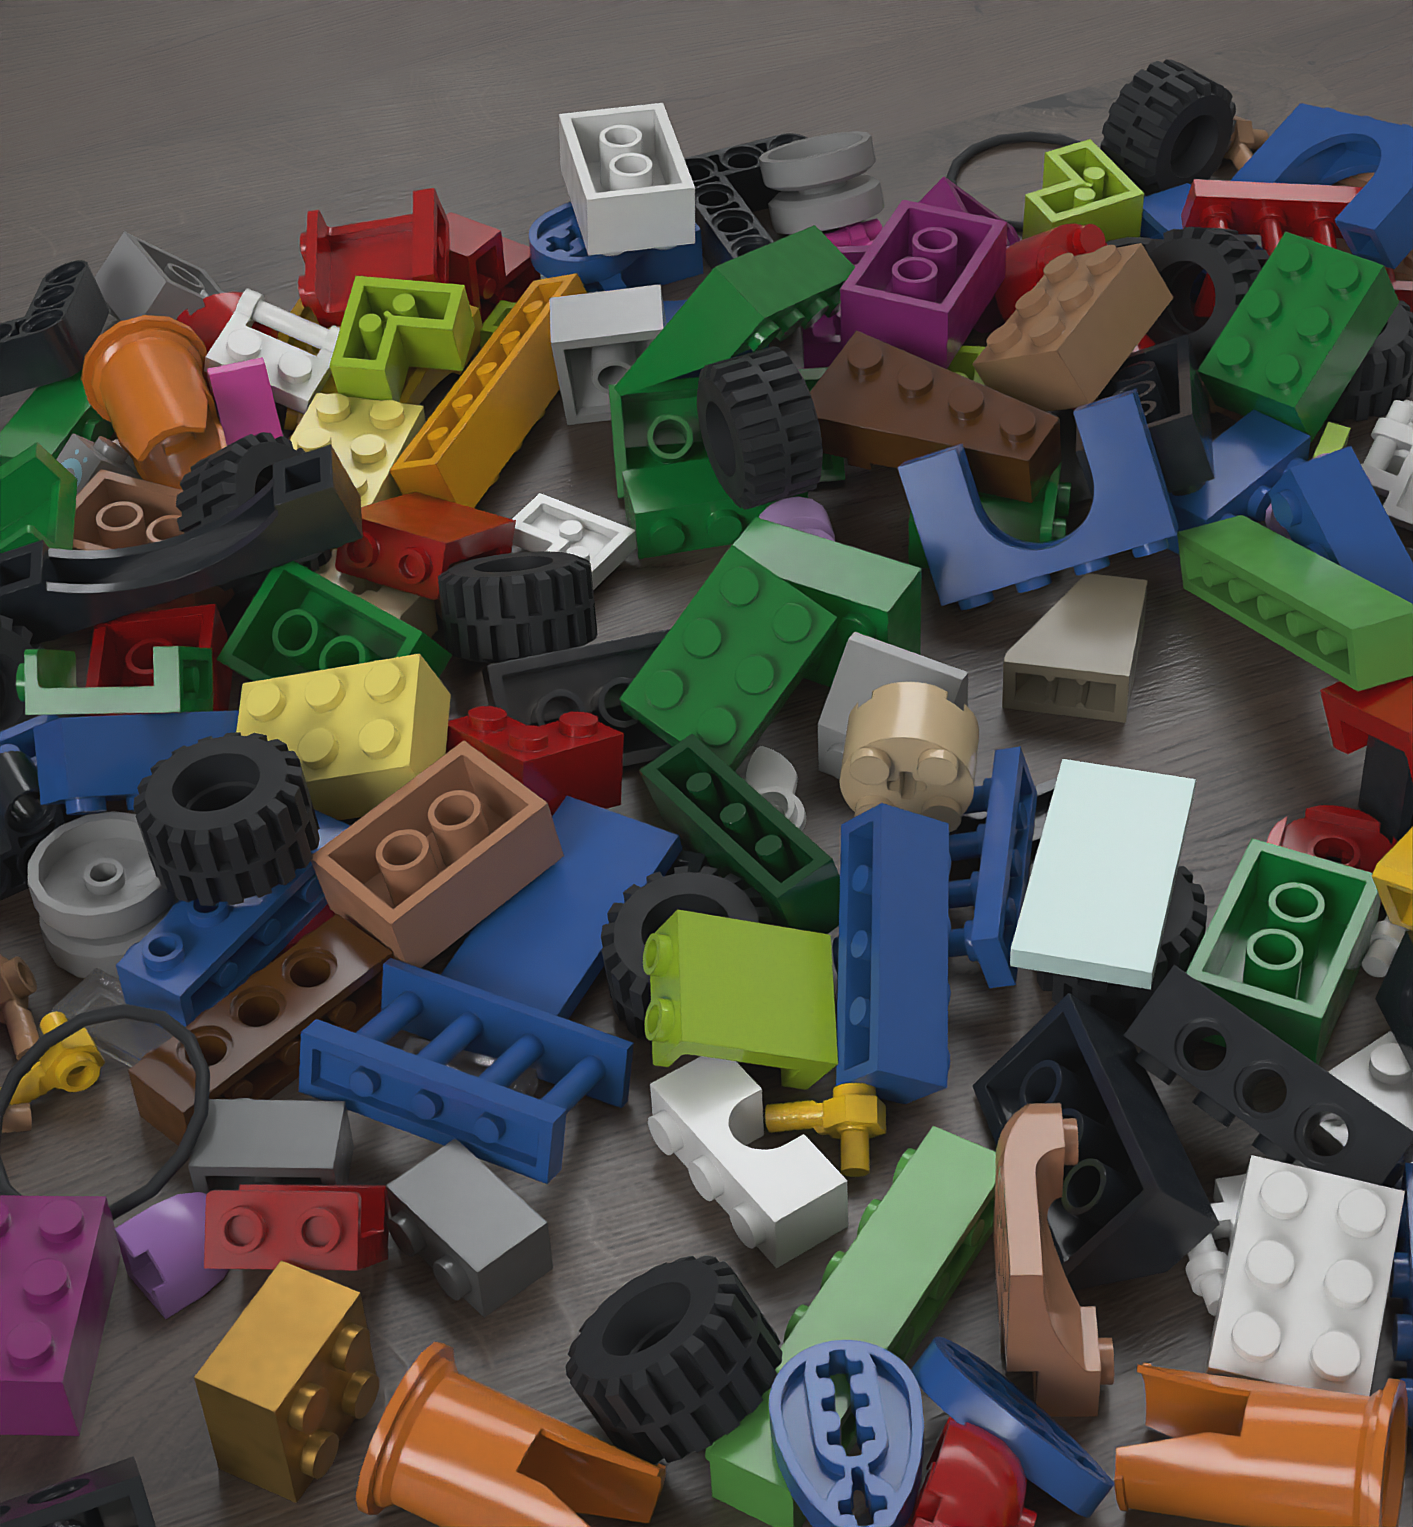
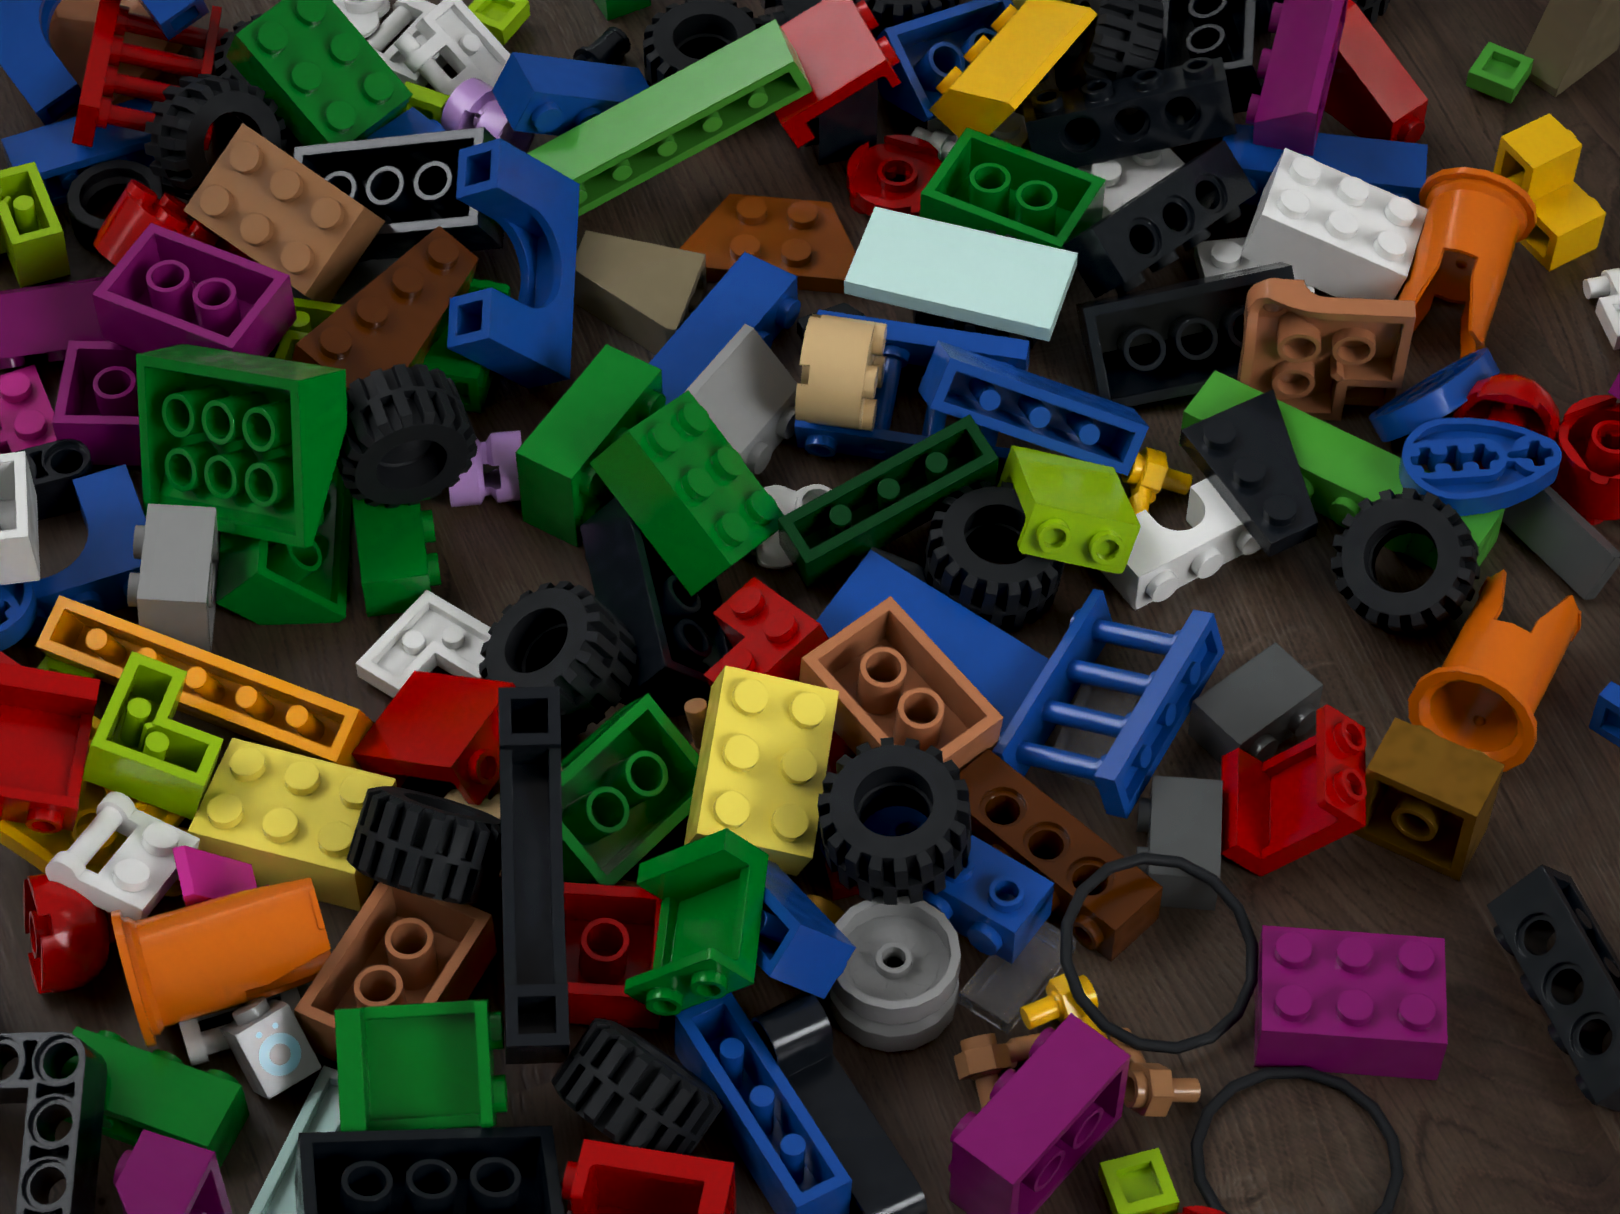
camera: 90 degrees left, 10 degrees up
(166, 1252) = (1273, 902): medium lavender brick -> none
(823, 1186) = (1255, 471): none -> black wing
(1037, 712) = (747, 294): none -> blue brick
(1210, 742) = (785, 232): none -> dark orange wing

